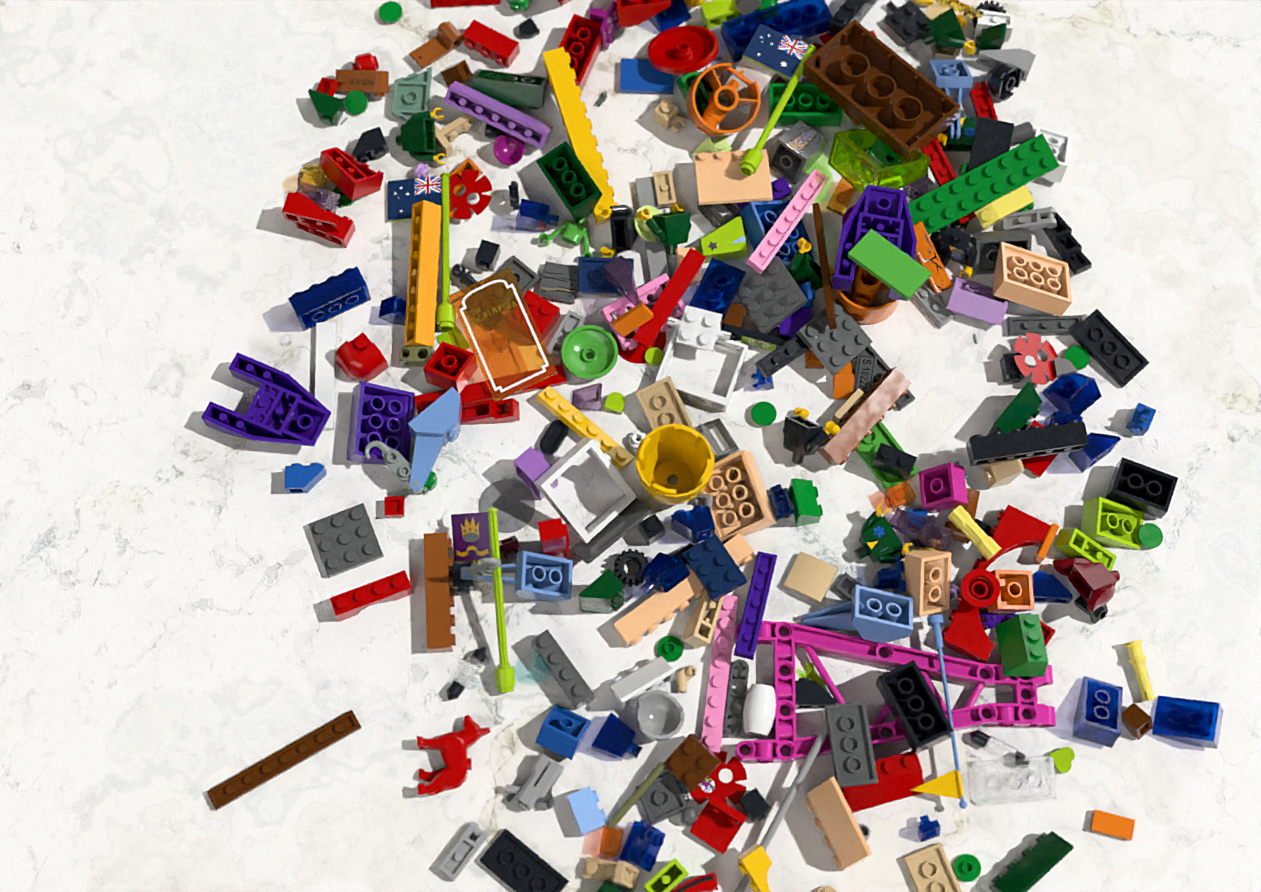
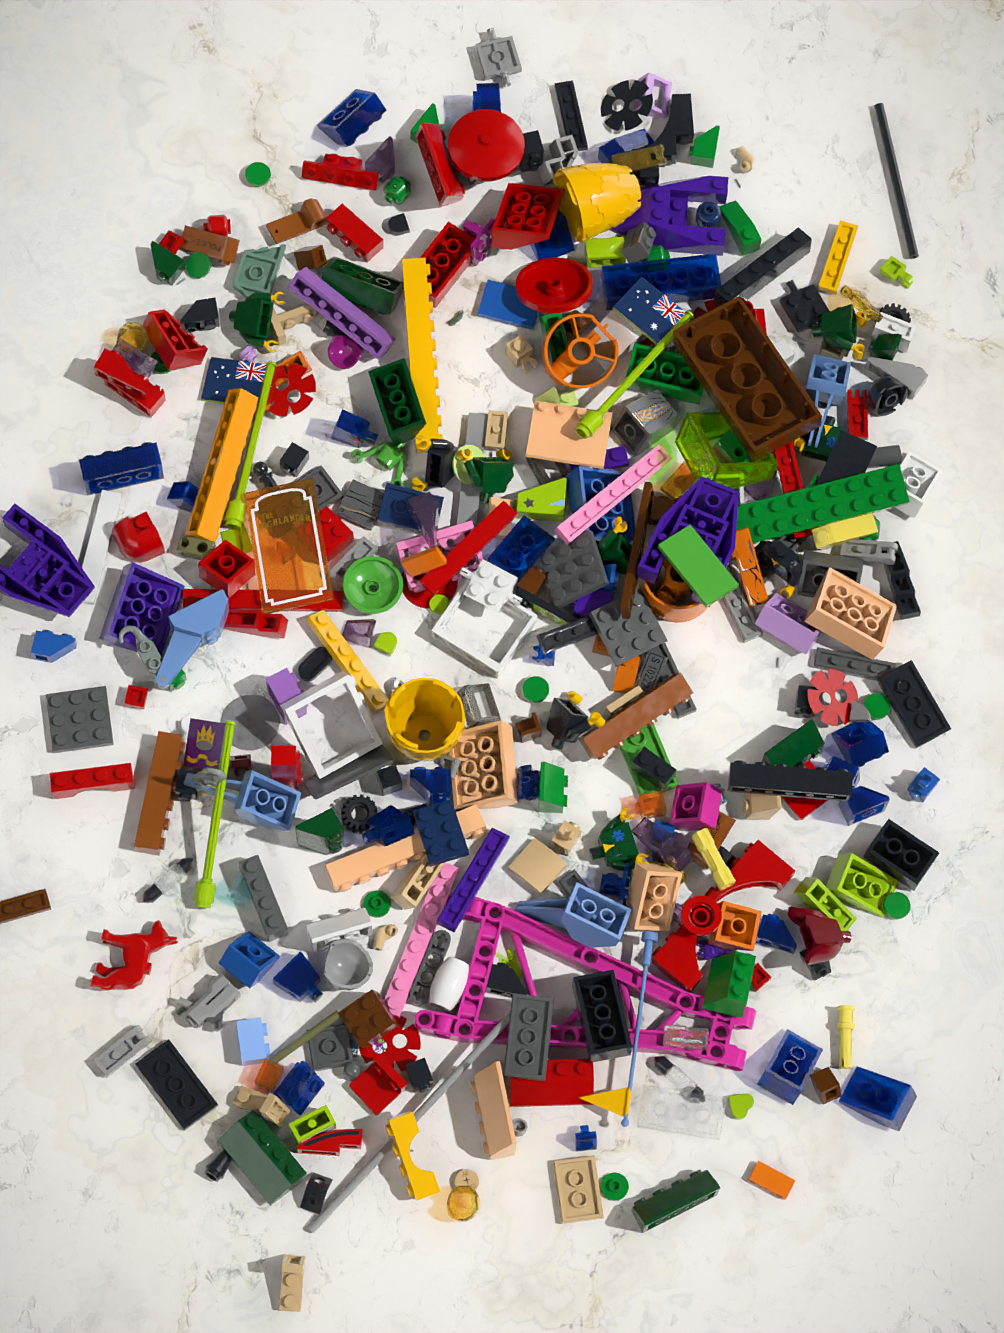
camera: 10 degrees right, 0 degrees up
(514, 195) = (337, 402): black gear -> none
(663, 404) = (434, 657): tan plate -> none
(767, 451) = (529, 728): none -> reddish brown panel
(830, 544) = (566, 837): none -> tan brick
(832, 227) = (659, 507): none -> reddish brown brick
(996, 708) = (685, 1037): none -> clear slope
(1044, 547) = (787, 888): orange tile -> none

